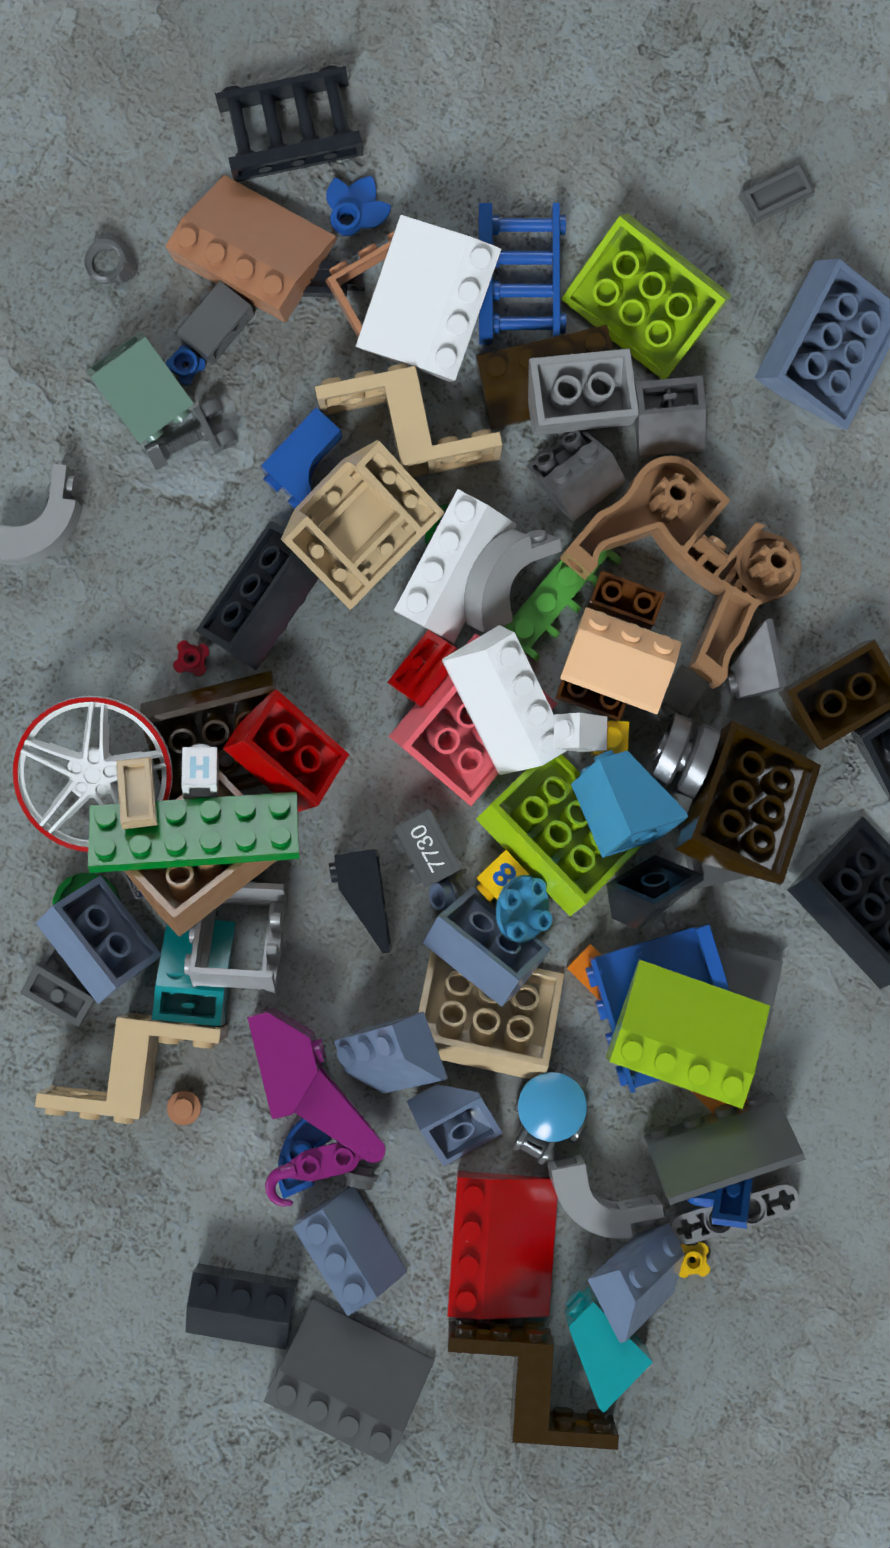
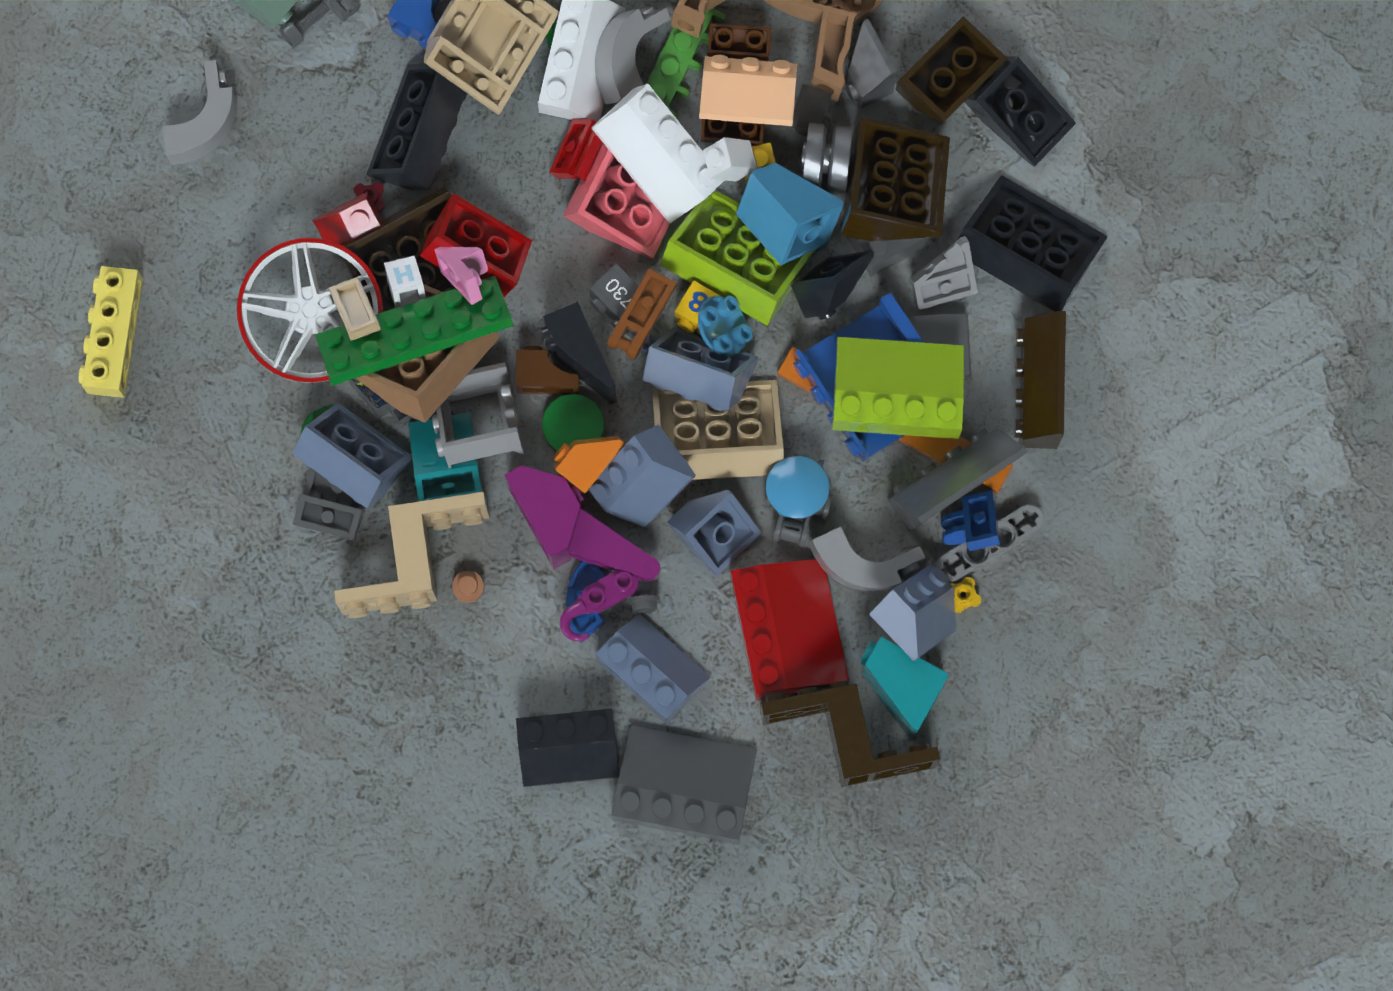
camera: 15 degrees left, 10 degrees down
(163, 682) = (349, 220): none -> red slope
(262, 779) = (463, 269): none -> bright pink slope
(315, 901) = (540, 376): none -> reddish brown arch
(338, 964) = (571, 419): none -> green tile
(341, 1016) = (586, 459): none -> orange slope
(441, 874) = (642, 313): none -> dark orange plate
(772, 917) = (946, 277): none -> light grey wing
(841, 1060) = (1042, 381): none -> dark brown slope

